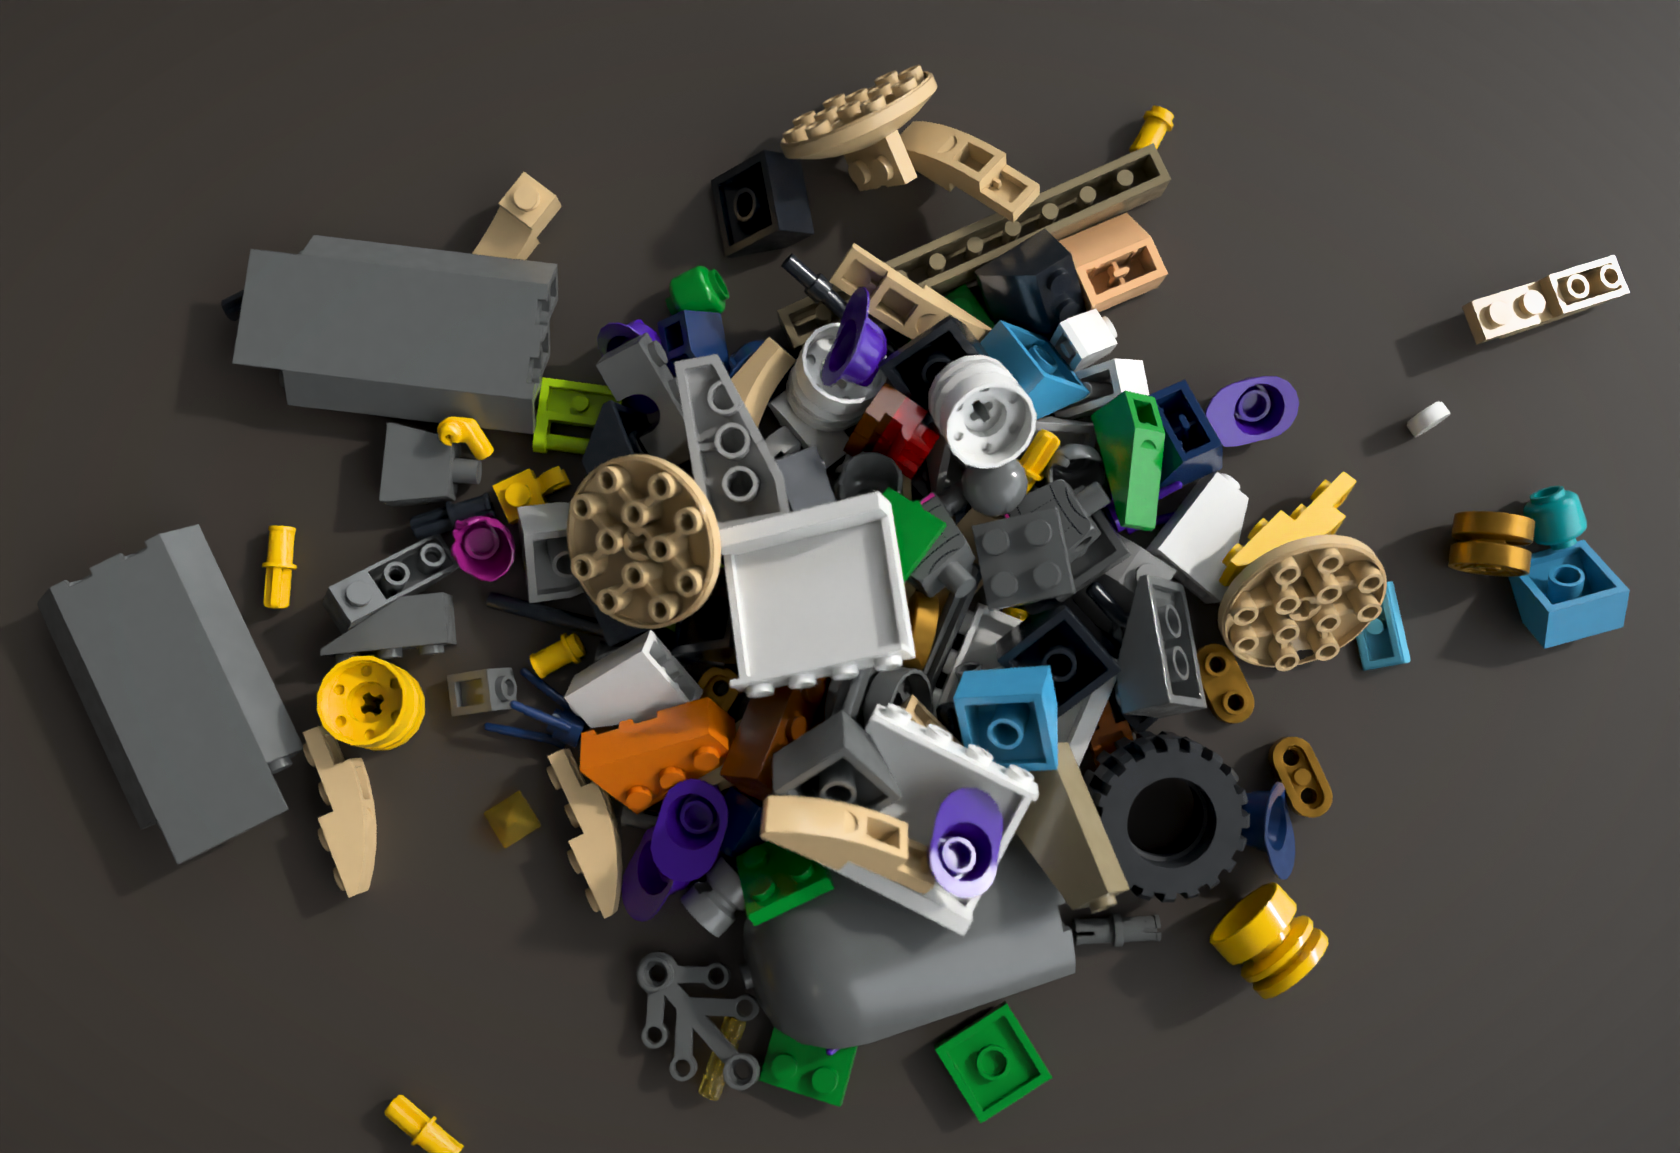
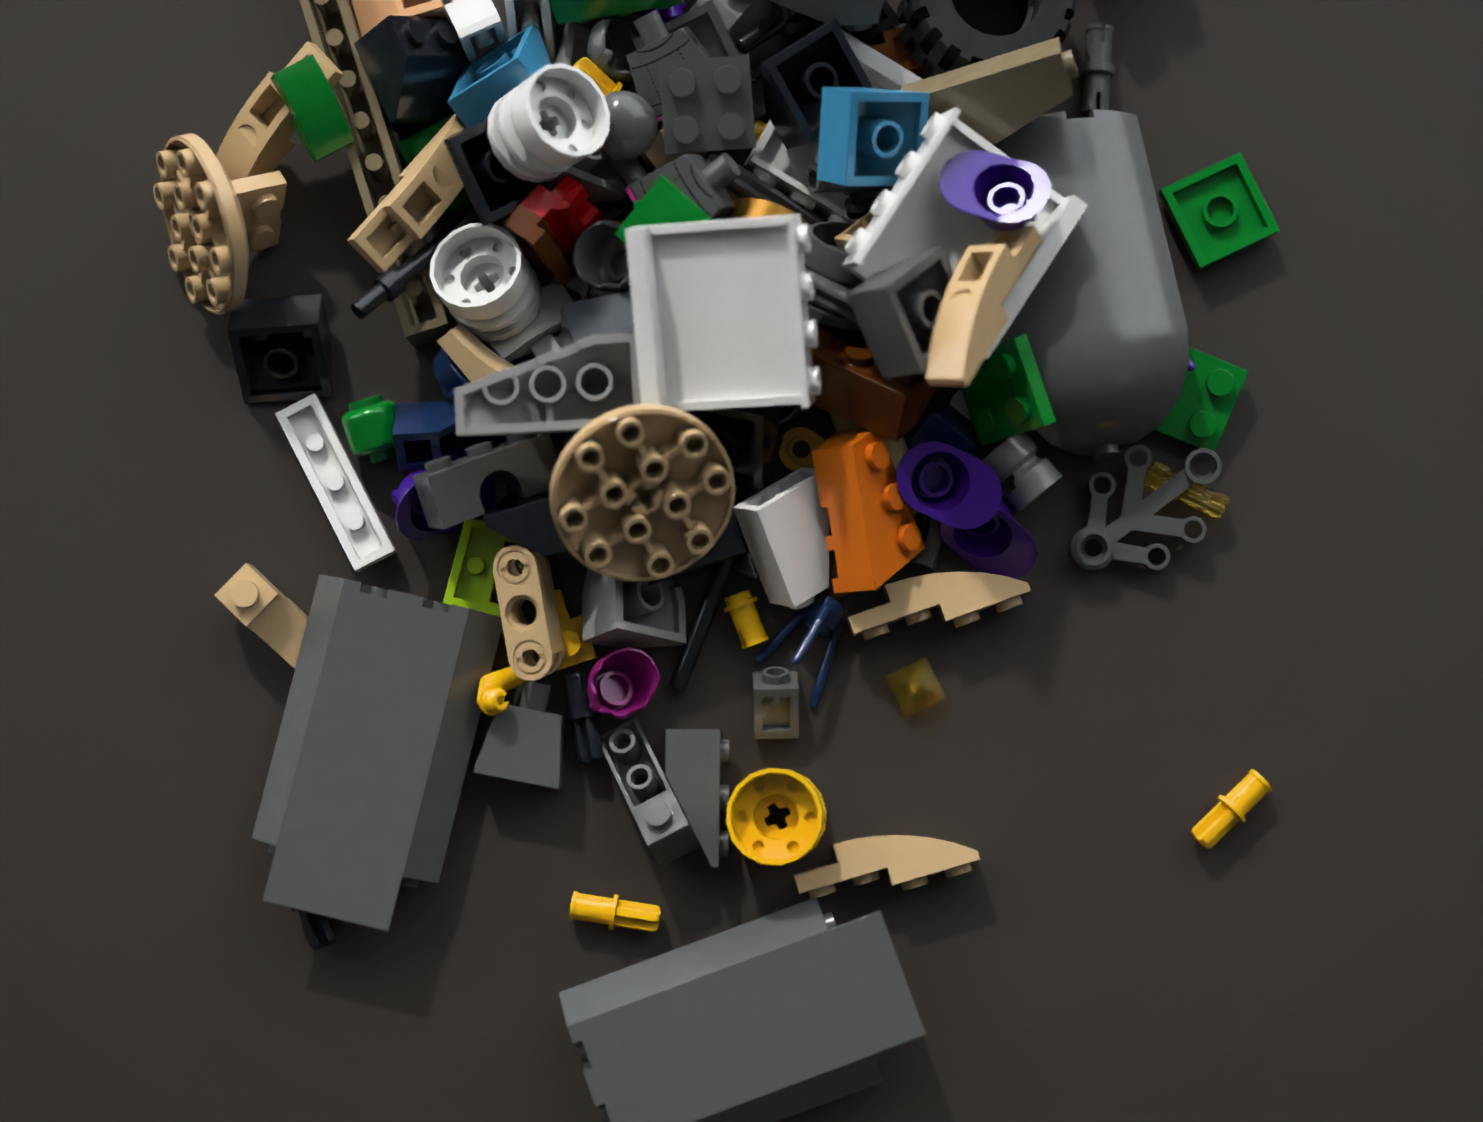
camera: 75 degrees left, 0 degrees up
(512, 465) = (521, 635): none -> tan piece
(644, 269) = (336, 482): none -> white plate
(857, 345) = (457, 247): dark purple piece -> none
(975, 197) = (314, 108): none -> green slope

